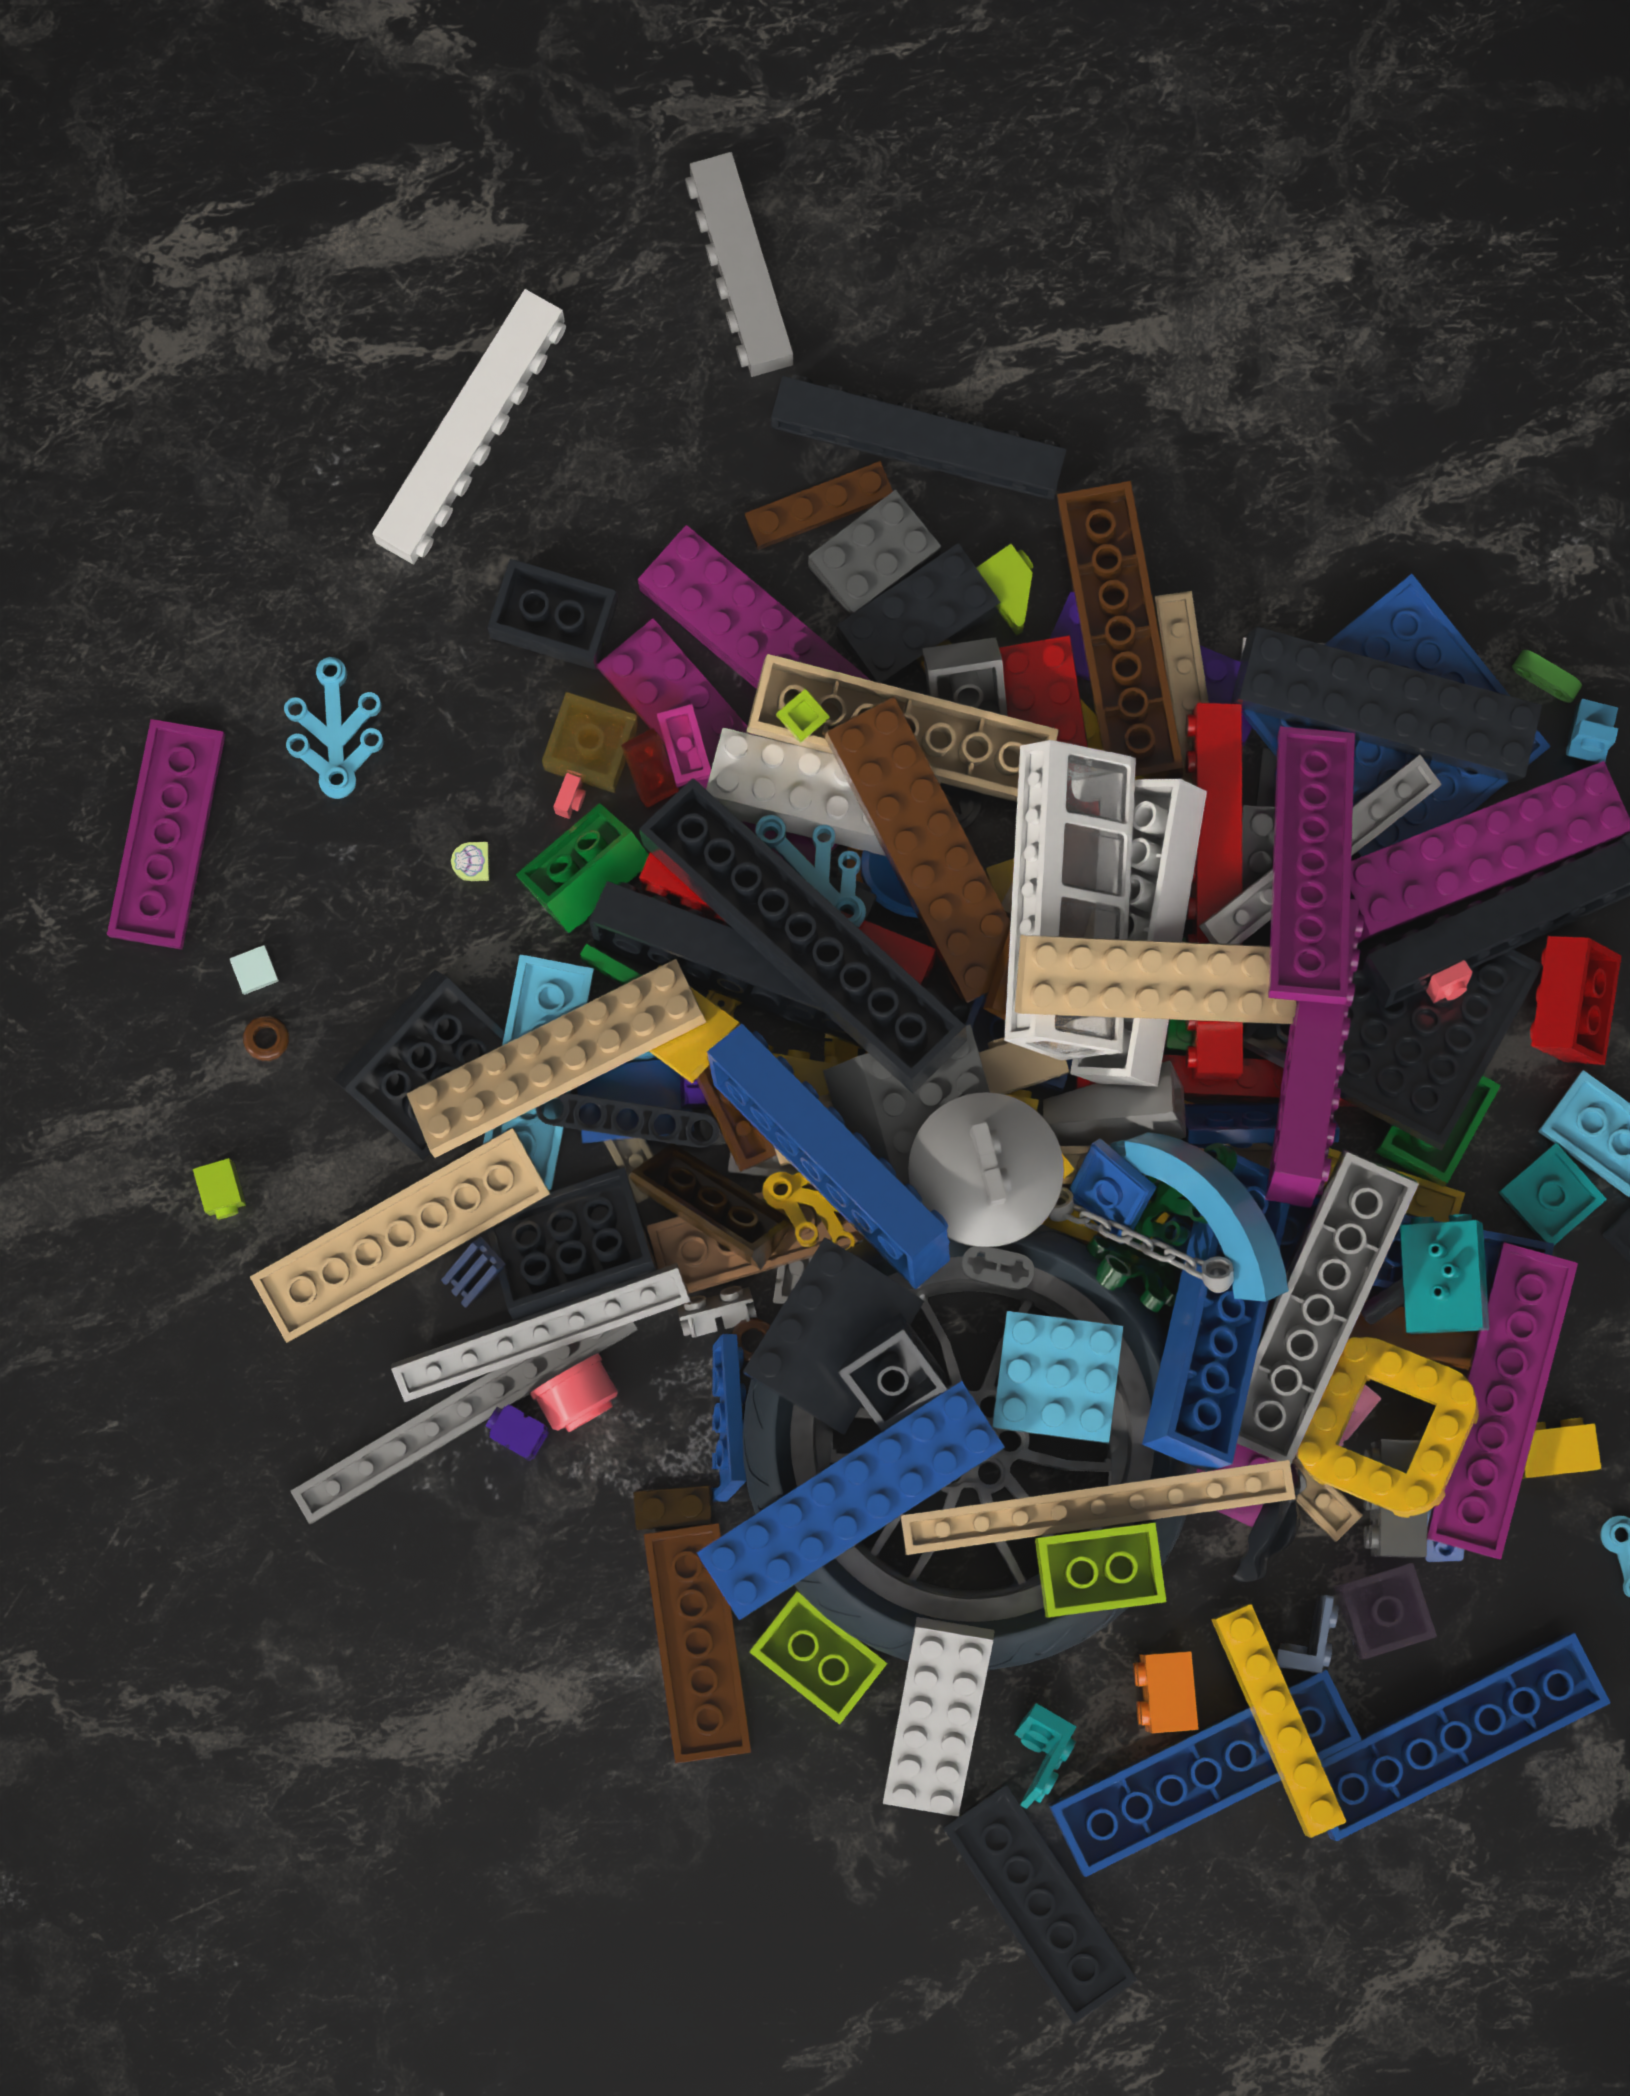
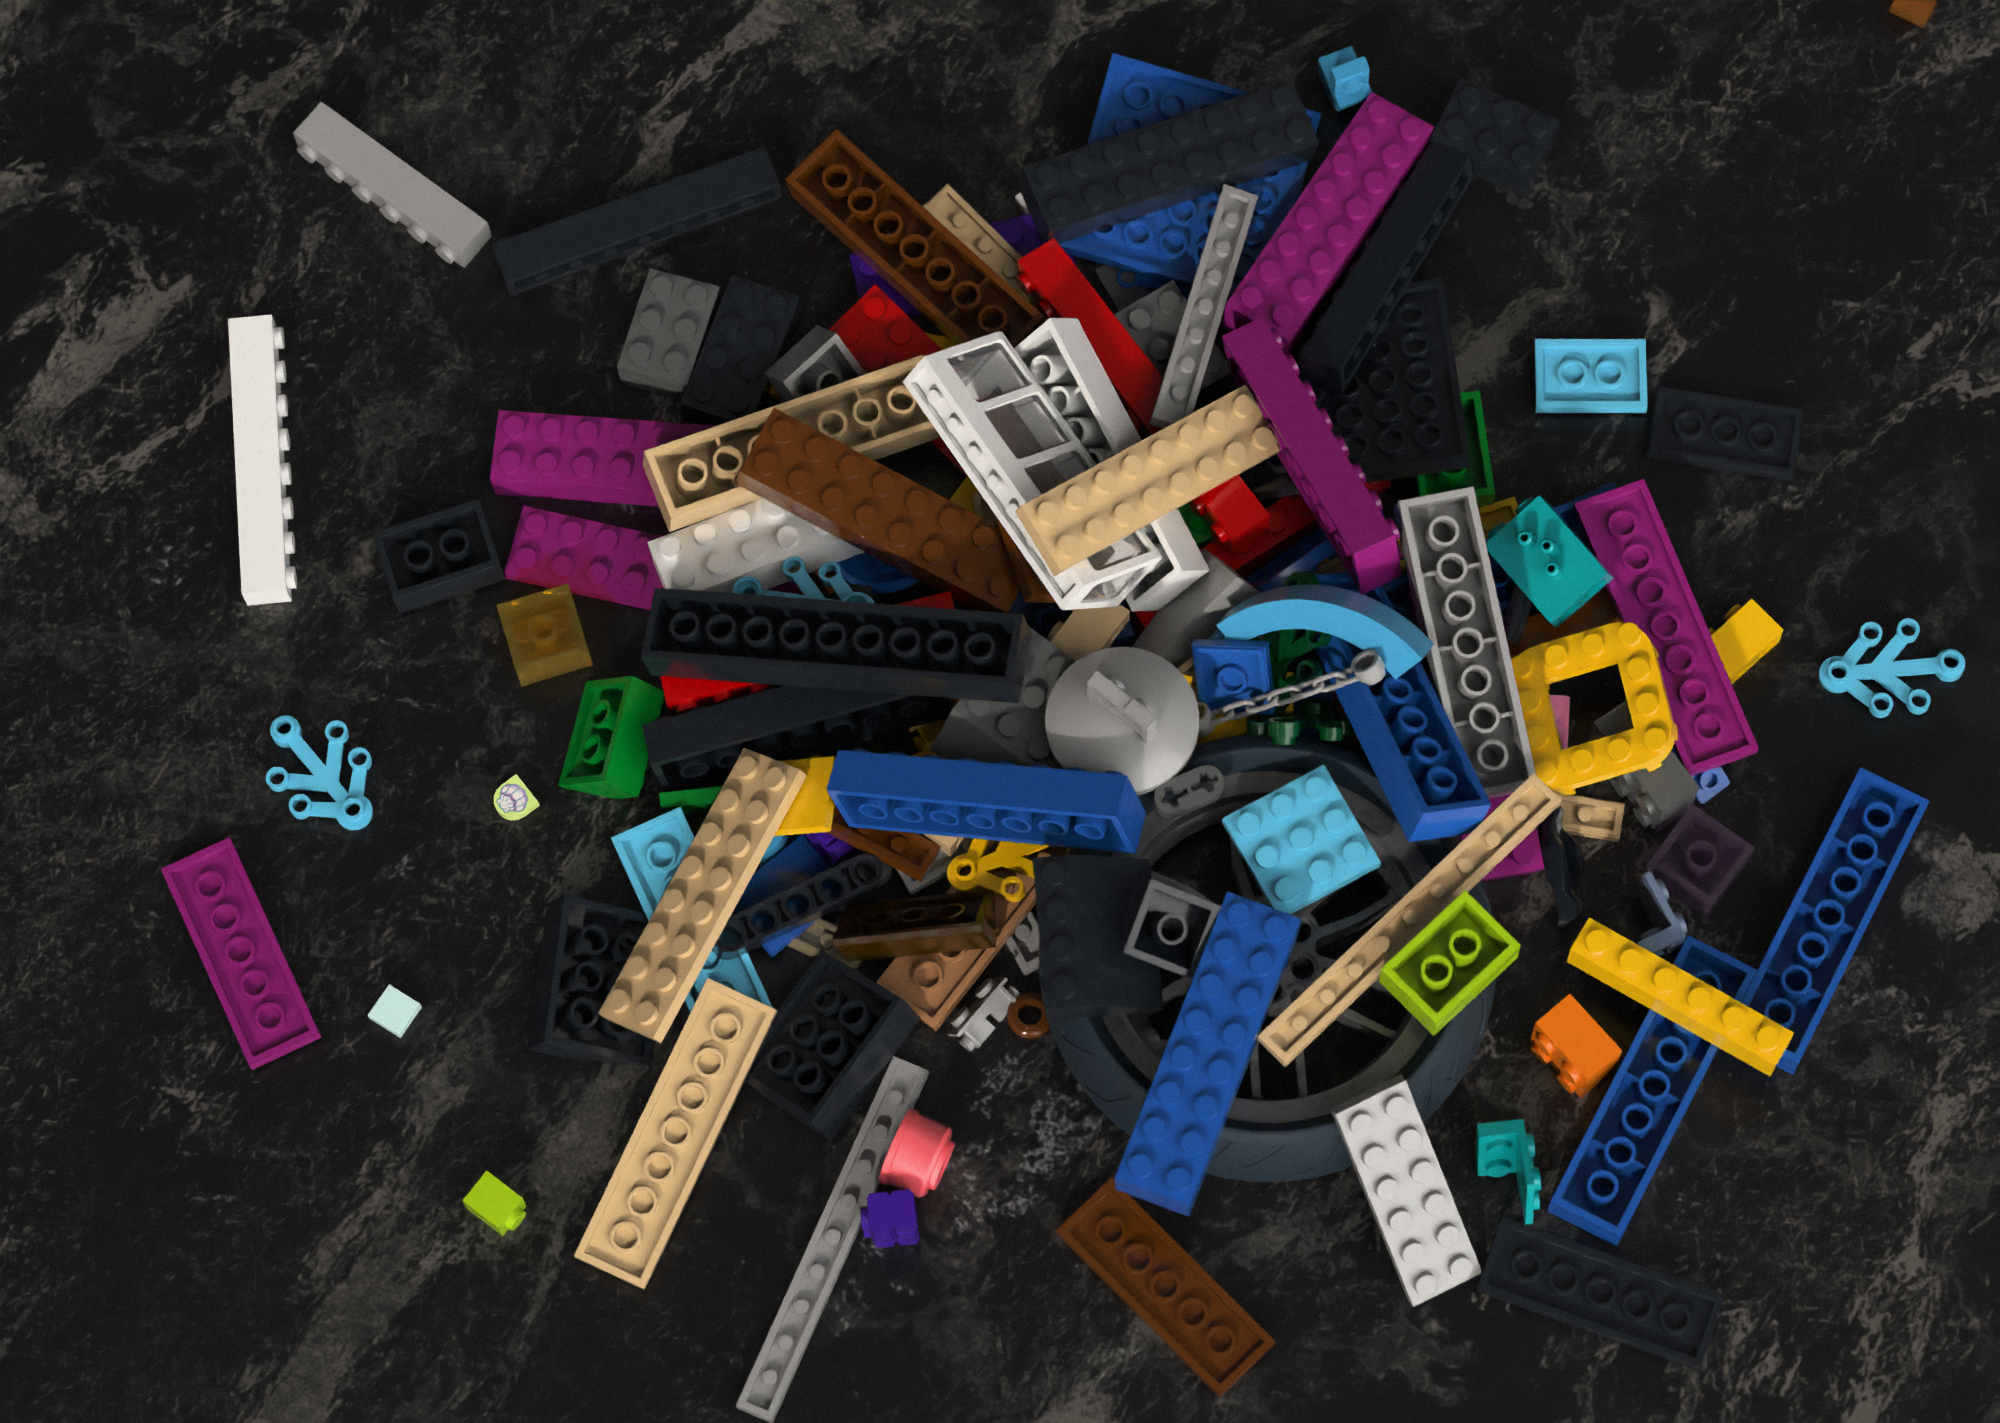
camera: 30 degrees left, 10 degrees down
(254, 1027) = (442, 1043): reddish brown piece -> none
(461, 1284) = (755, 1142): dark blue tile -> none
(540, 1332) = (851, 1126): light grey plate -> none
(569, 796) = (559, 690): coral plate -> none
(650, 767) = (609, 620): clear red plate -> none
(672, 1508) = (1063, 1195): dark brown plate -> none
(684, 745) = (622, 582): dark pink plate -> none
(728, 1417) = (1057, 1088): blue wing -> none
(802, 715) = (709, 478): lime plate -> none
(818, 505) = (593, 329): reddish brown plate -> none
(818, 1658) = (1273, 1224): lime brick -> none
(1010, 579) = (795, 274): lime slope -> none
(1312, 866) = (1204, 315): magenta plate -> none
(1449, 982) = (1379, 337): coral plate -> none
(1547, 676) = (1277, 63): bright green beam -> none
(1552, 1195) = (1583, 451): teal plate -> none
(1575, 1000) = (1488, 287): red brick -> none

